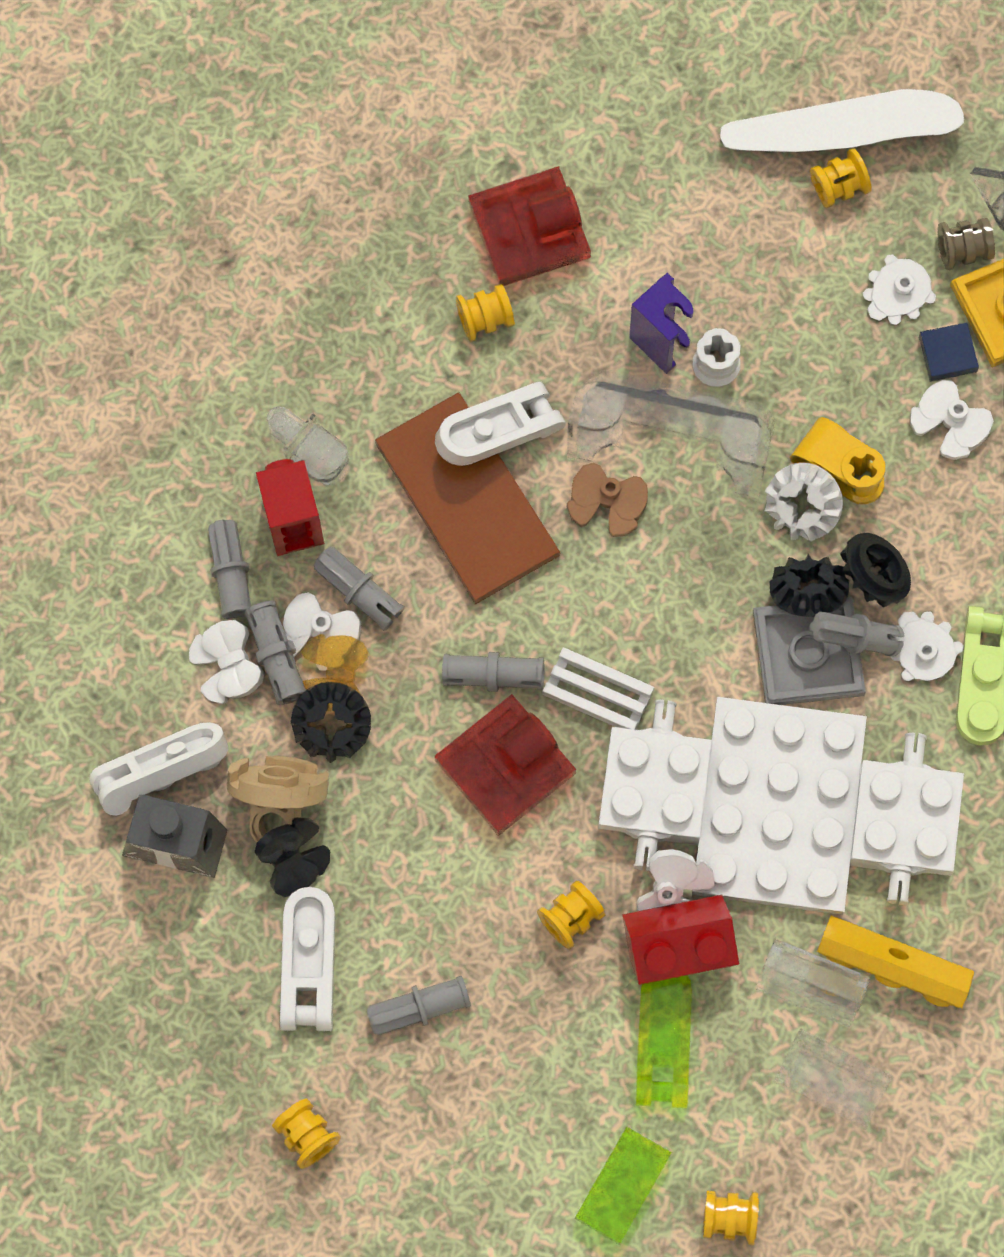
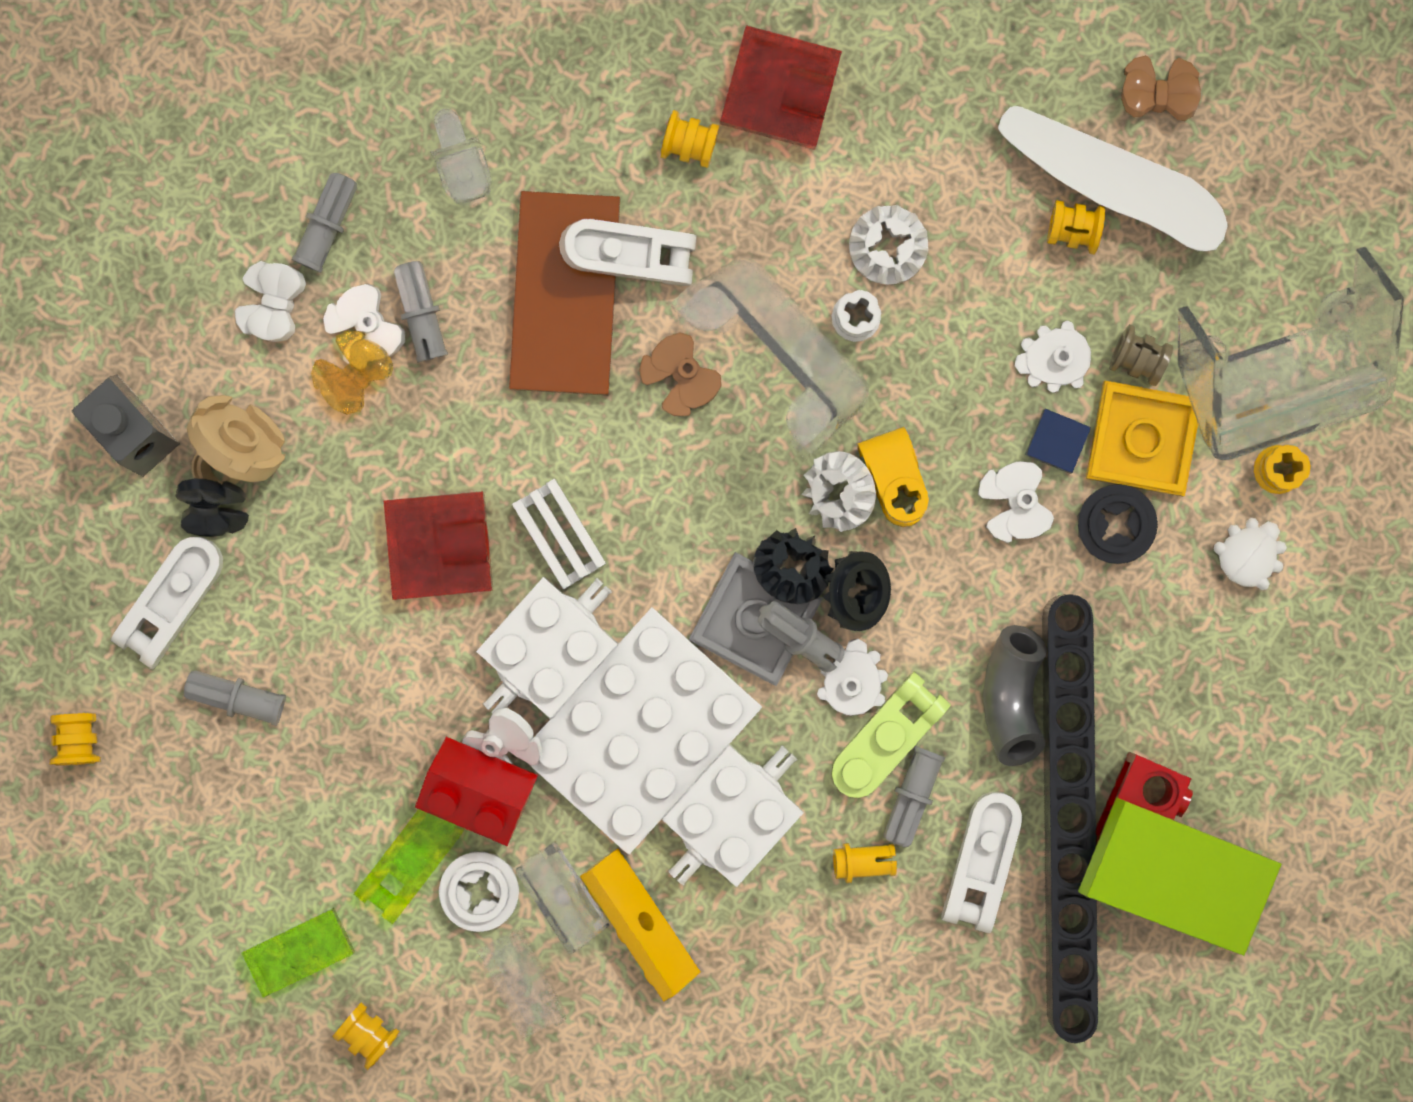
camera: 30 degrees right, 15 degrees up
(158, 765) = (153, 354): white plate -> none
(275, 652) = (313, 322): light grey pin -> none
(290, 506) = (402, 206): red brick -> none
(348, 707) = (339, 411): black gear -> none
(493, 671) = (482, 460): light grey pin -> none
(571, 914) = (406, 707): yellow bush -> none
(654, 324) = (826, 247): dark purple hinge -> none
(725, 286) = (878, 265): none -> white gear
(754, 1009) = (456, 899): none -> white gear
(844, 32) = (1177, 95): none -> medium nougat piece

